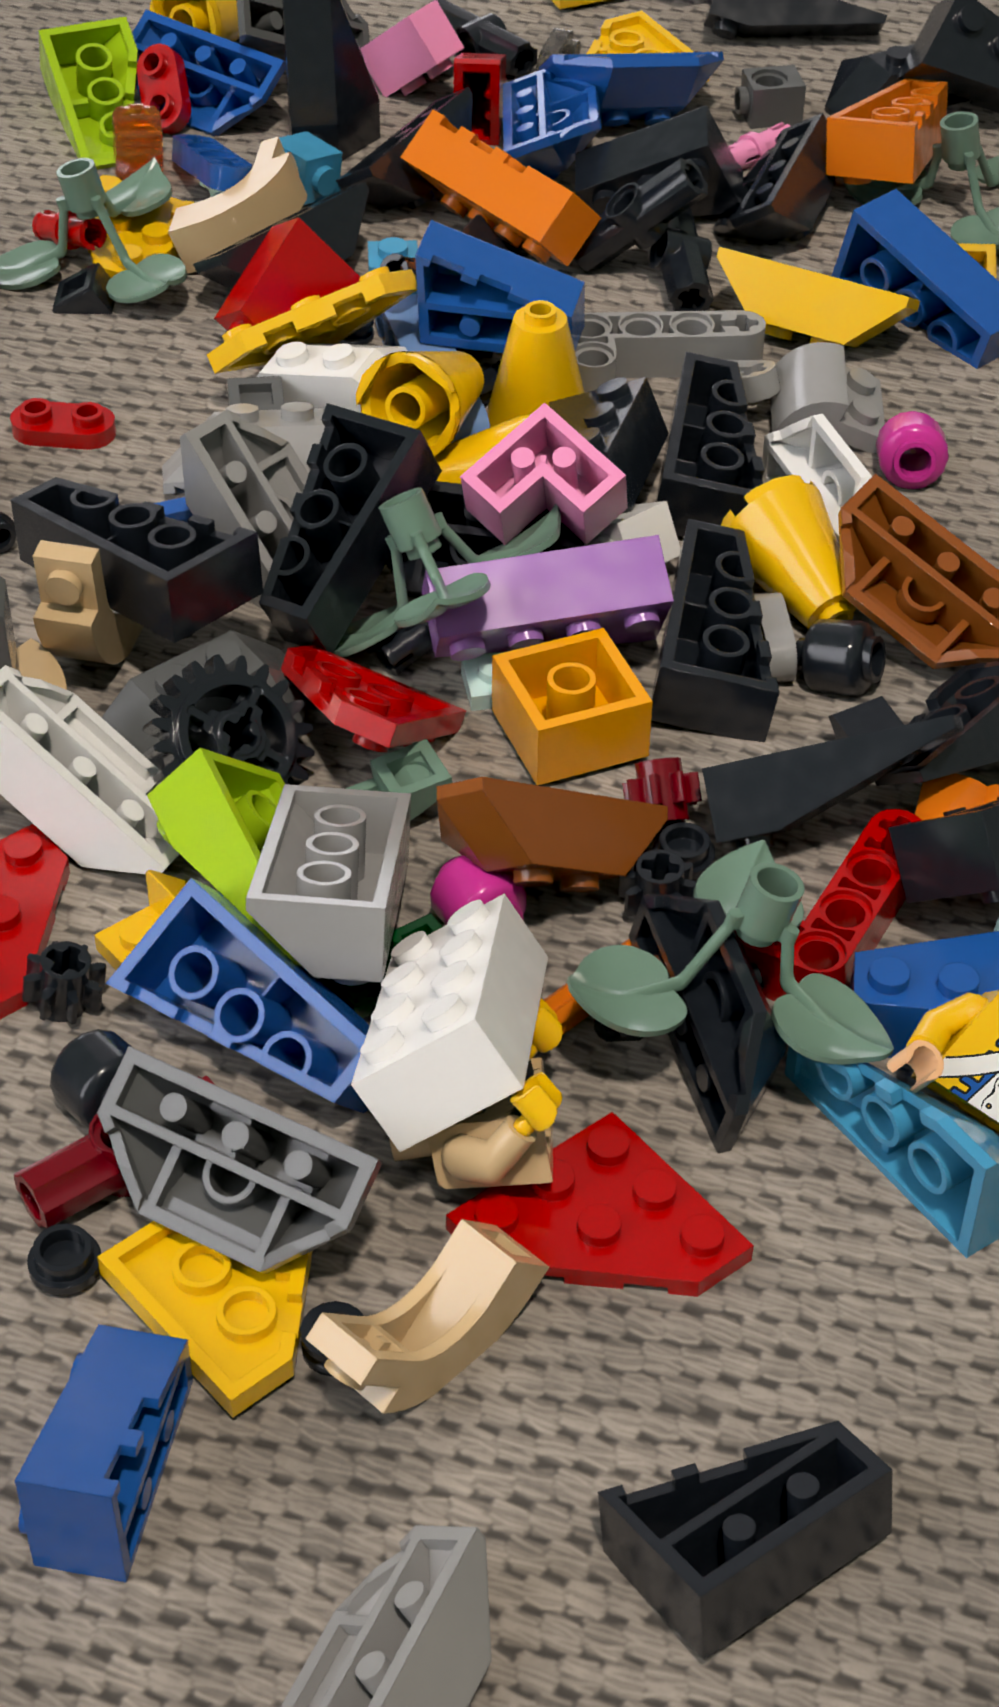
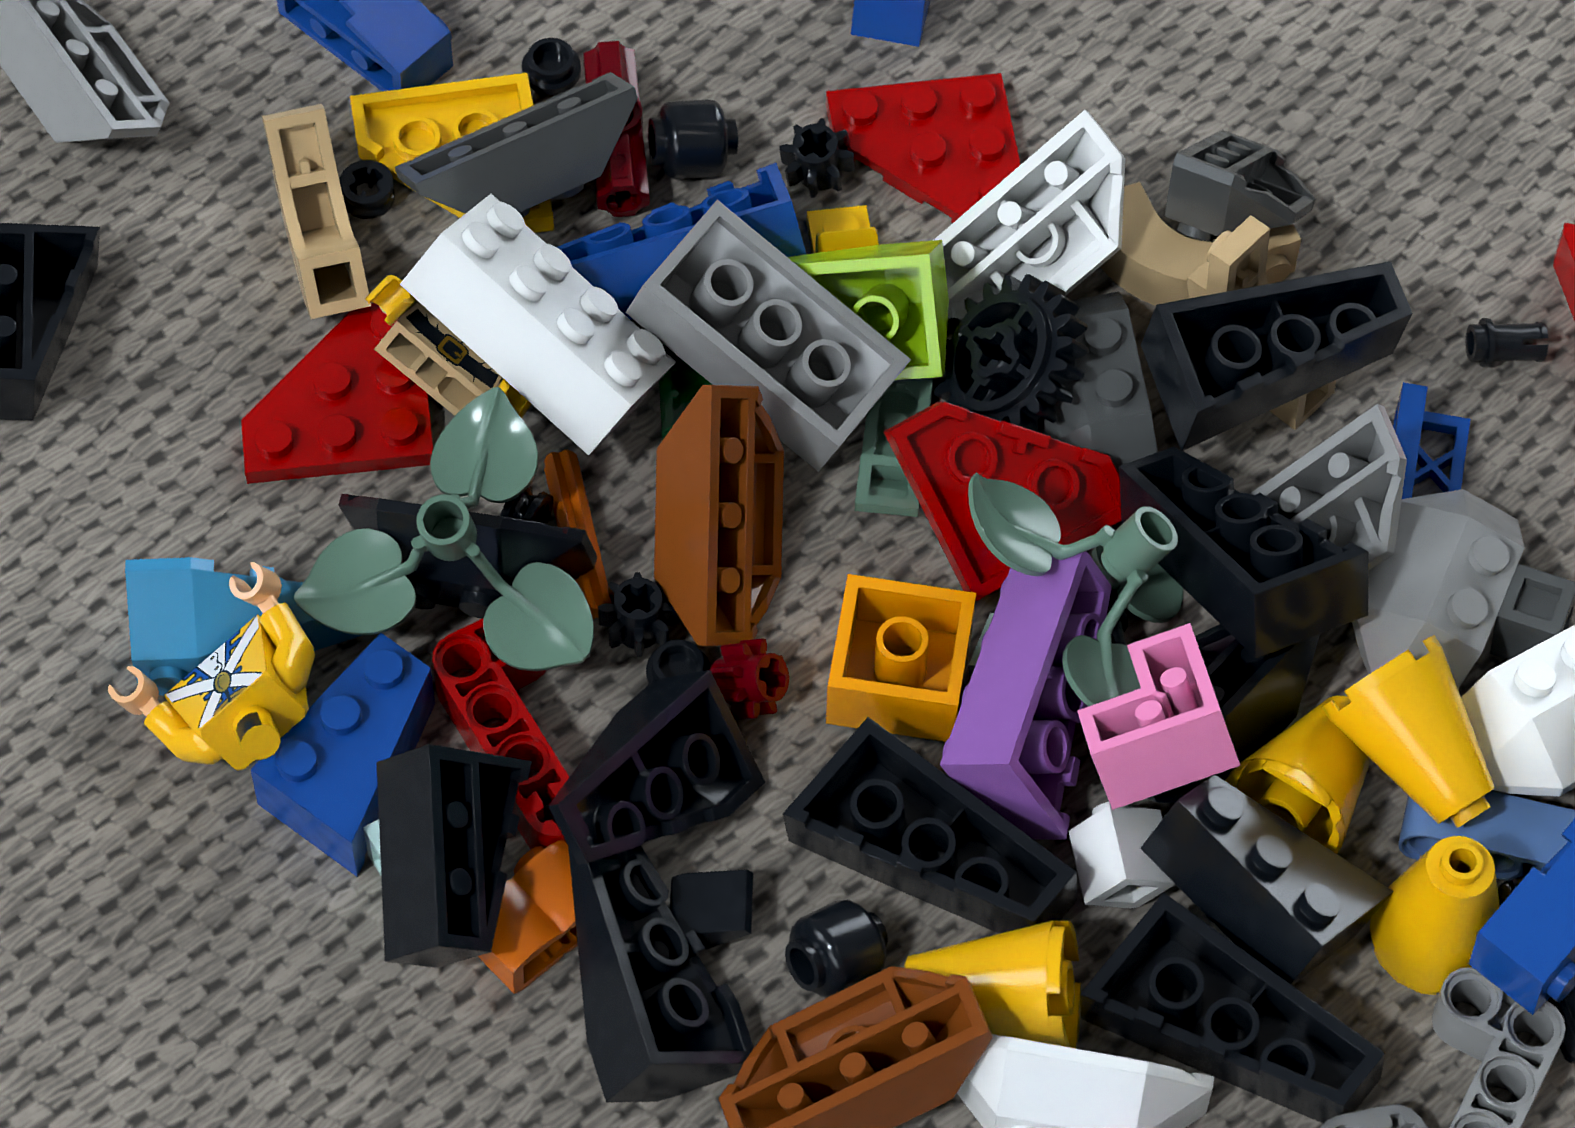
camera: 120 degrees right, 15 degrees up
(778, 631) = (912, 911): light grey beam -> none

